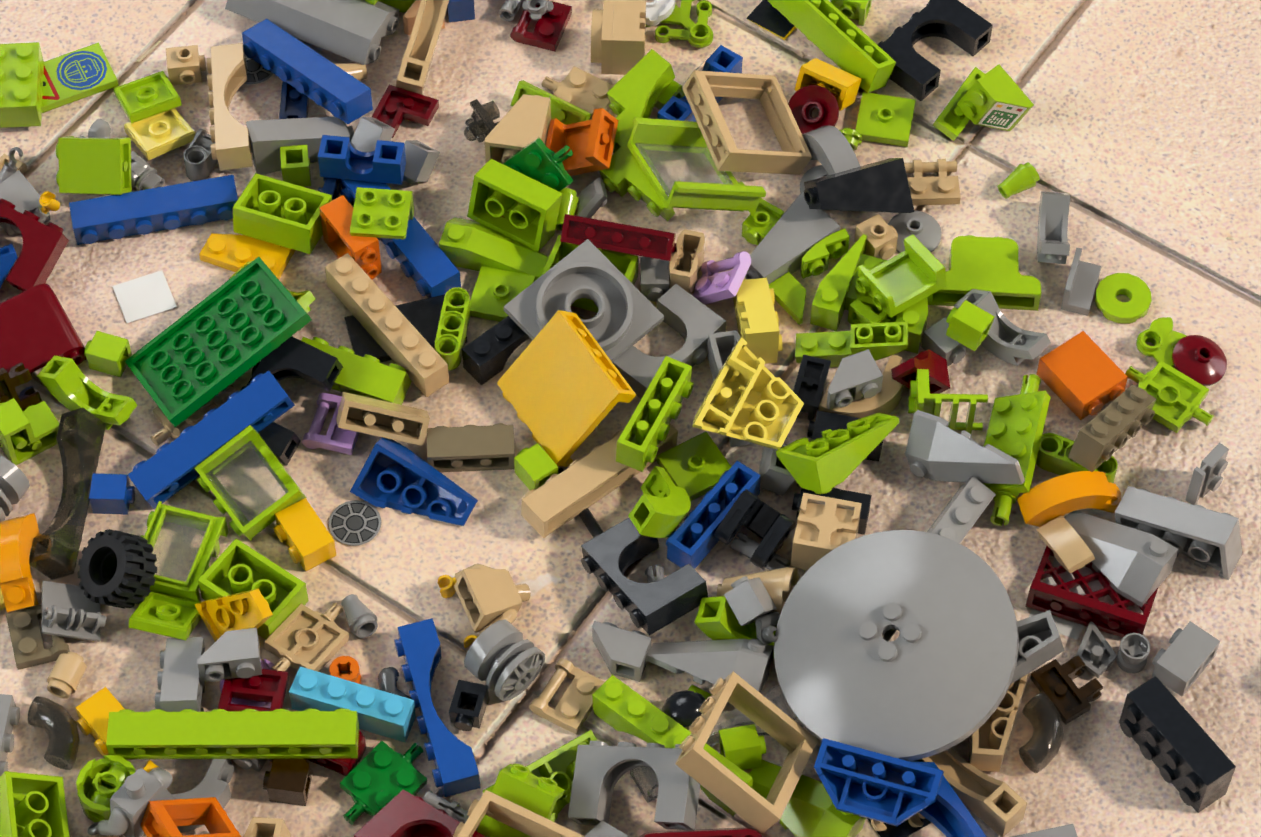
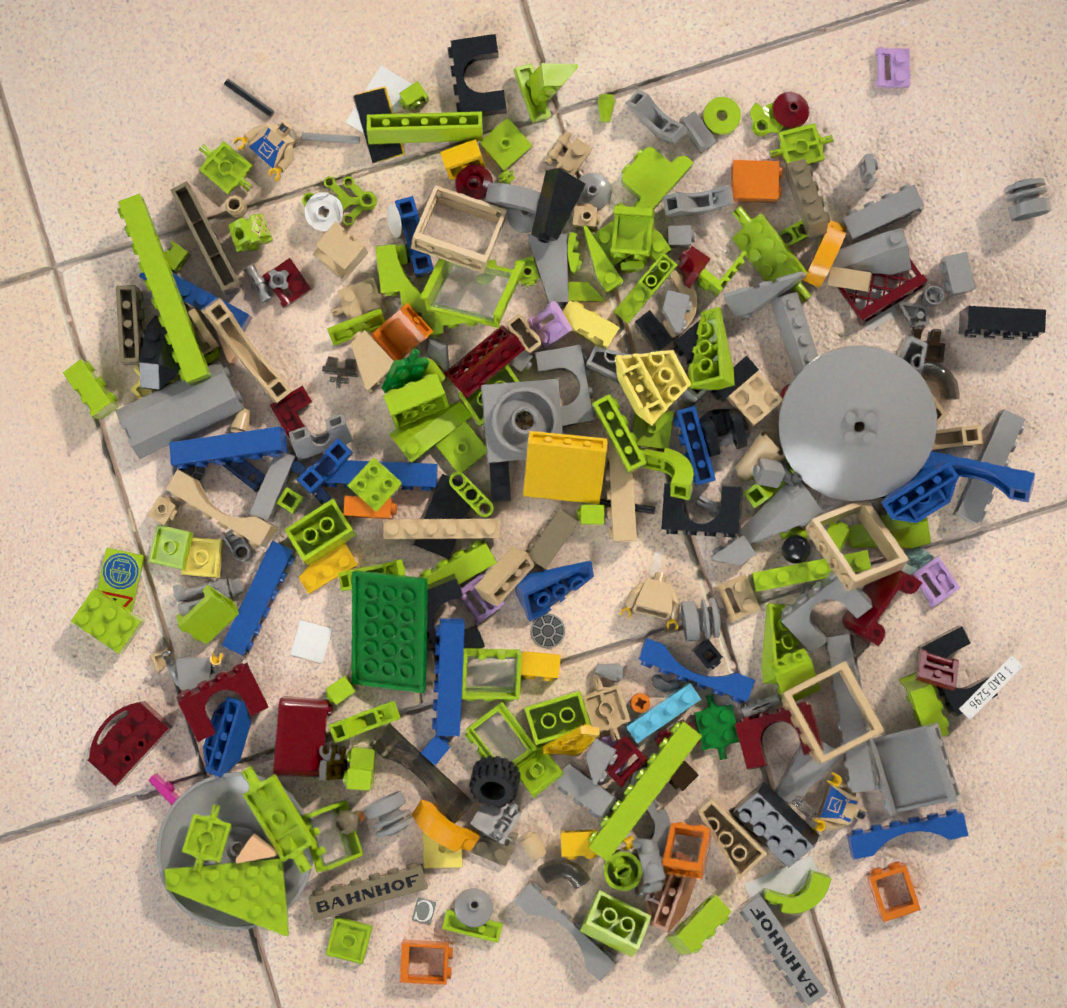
camera: 55 degrees left, 30 degrees up
(969, 325) = (688, 220): lime brick -> none

